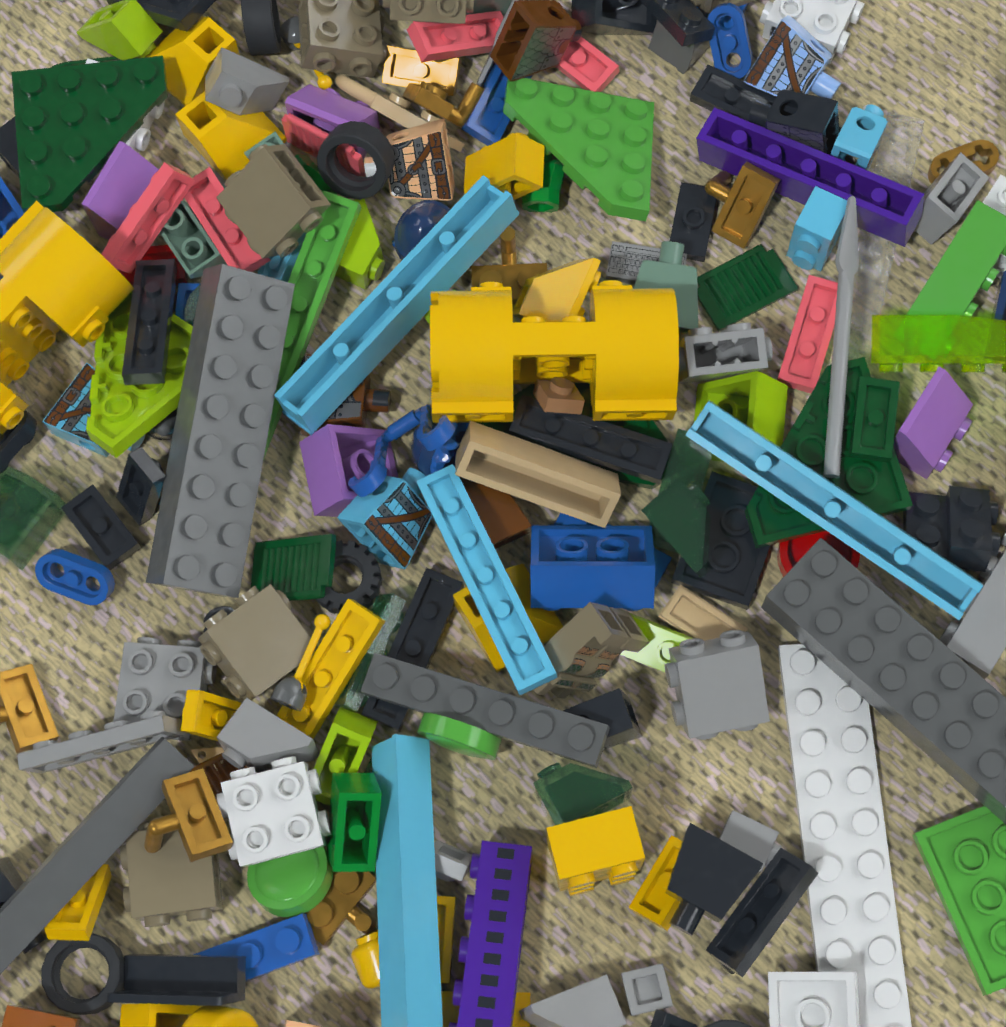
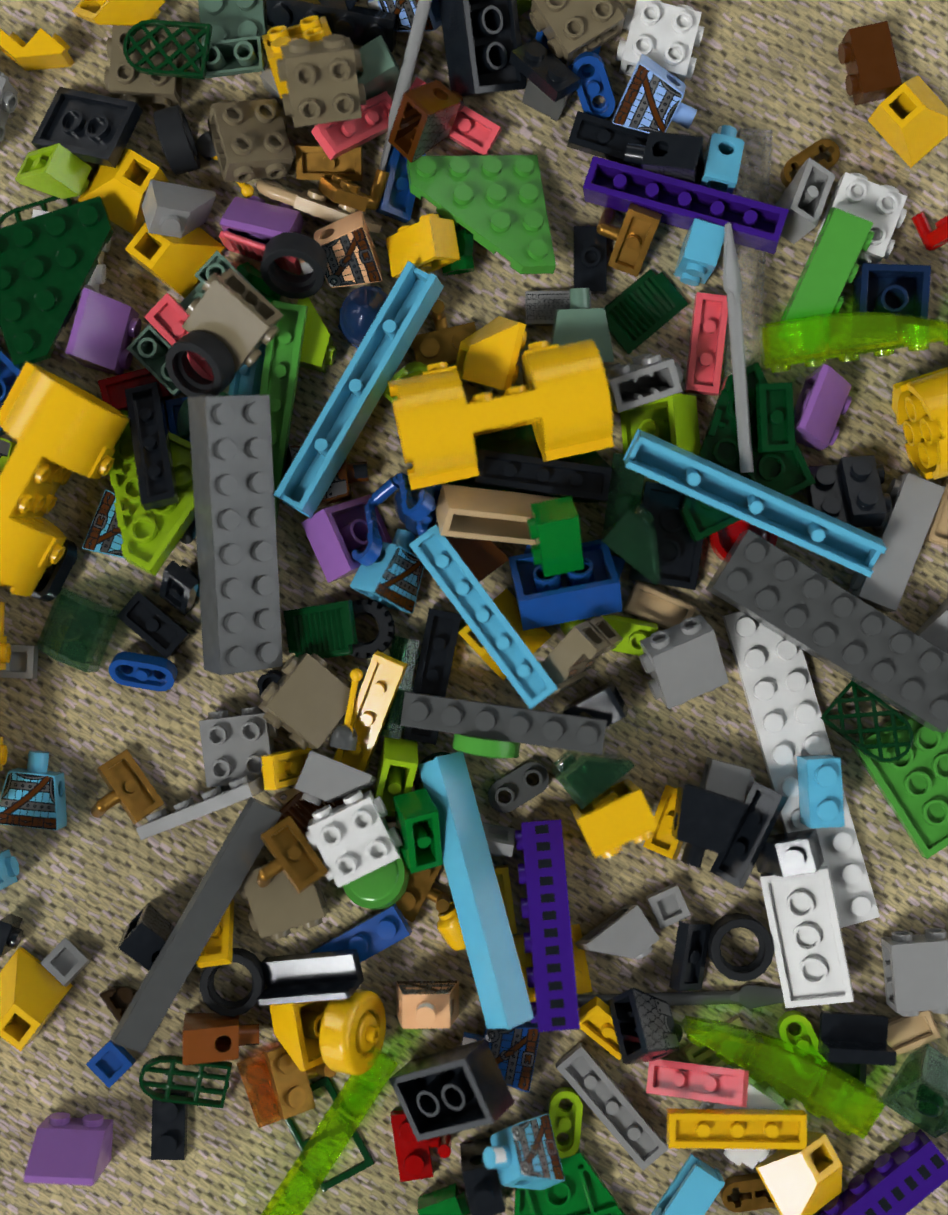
camera: 20 degrees left, 15 degrees up
(147, 217) = (125, 353): coral plate -> none
(245, 229) = (213, 352): none -> black tyre
(489, 805) = (516, 784): none -> dark grey plate
(558, 396) = (510, 445): medium nougat plate -> none
(591, 502) = (556, 535): none -> green brick
(810, 947) = (791, 854): none -> black slope
(861, 873) = (820, 791): none -> medium azure brick
(923, 833) = (863, 748): none -> dark green window

